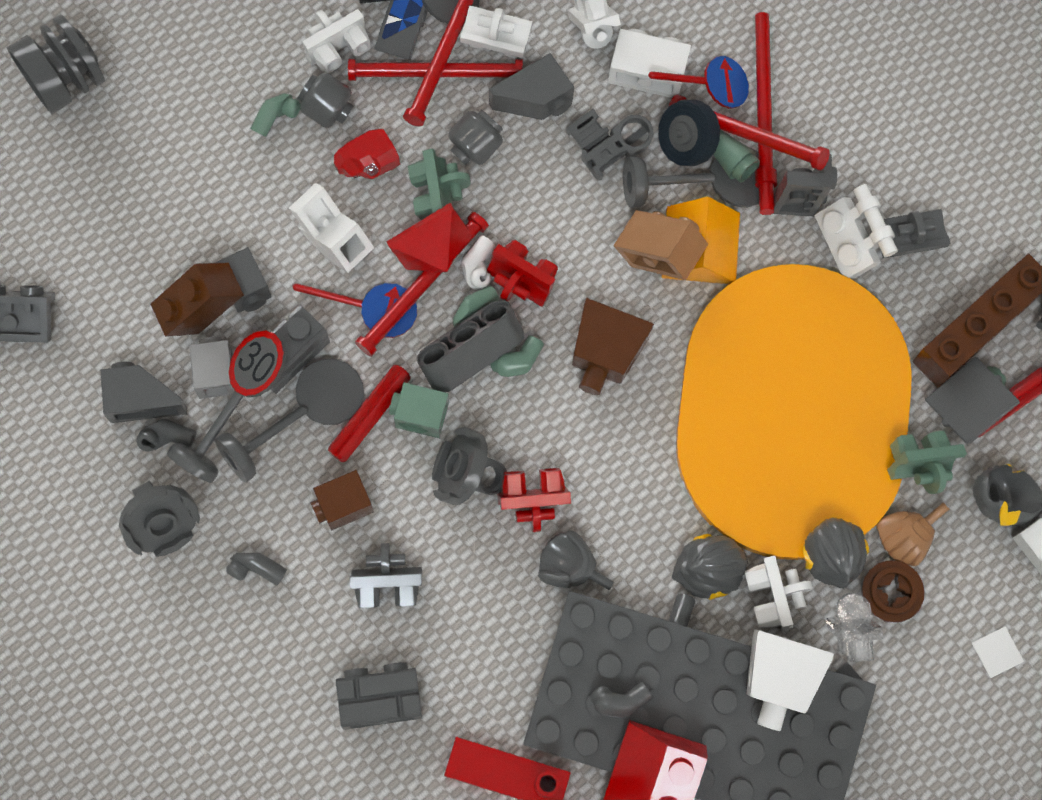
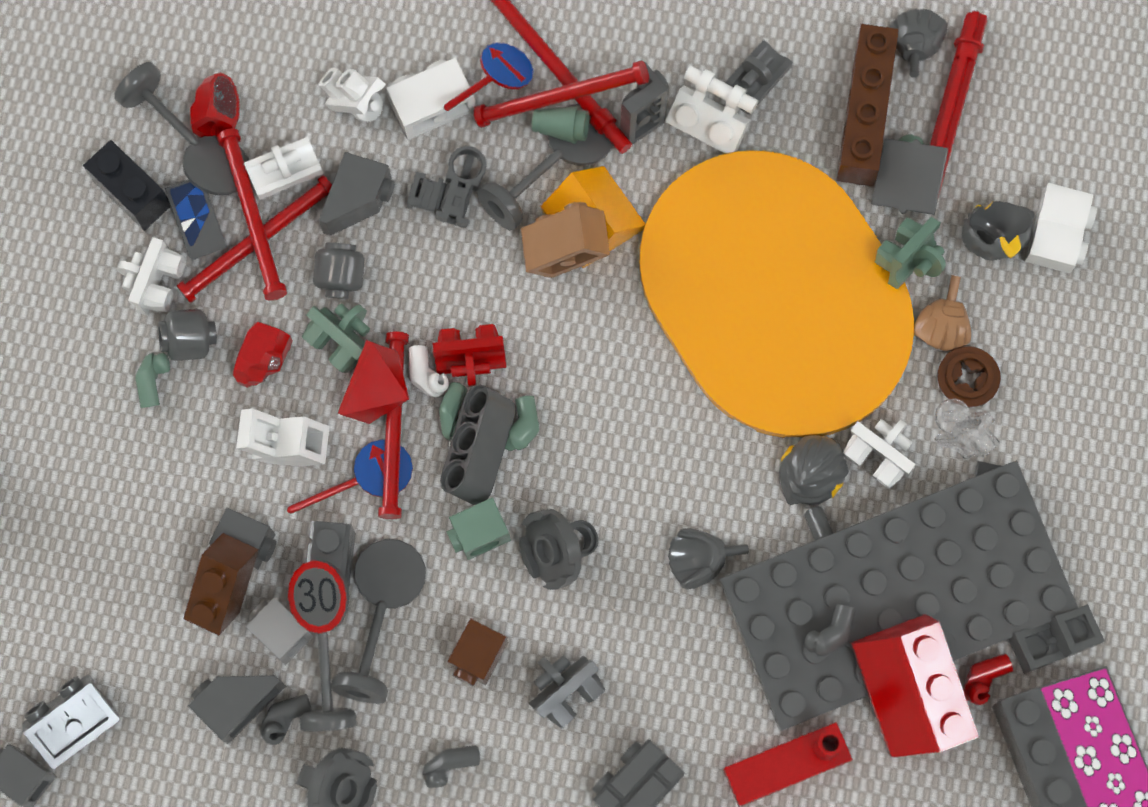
camera: 30 degrees left, 0 degrees up
(368, 414) = (438, 565): red axle -> none
(551, 492) = (615, 536): red hips -> none
(607, 345) = (586, 357): reddish brown torso -> none
(689, 132) = (511, 131): black wheel -> none
(784, 676) = (943, 510): white torso -> none
(836, 552) = (901, 381): dark grey hair -> none
(997, 652) = (1085, 360): white sticker -> none

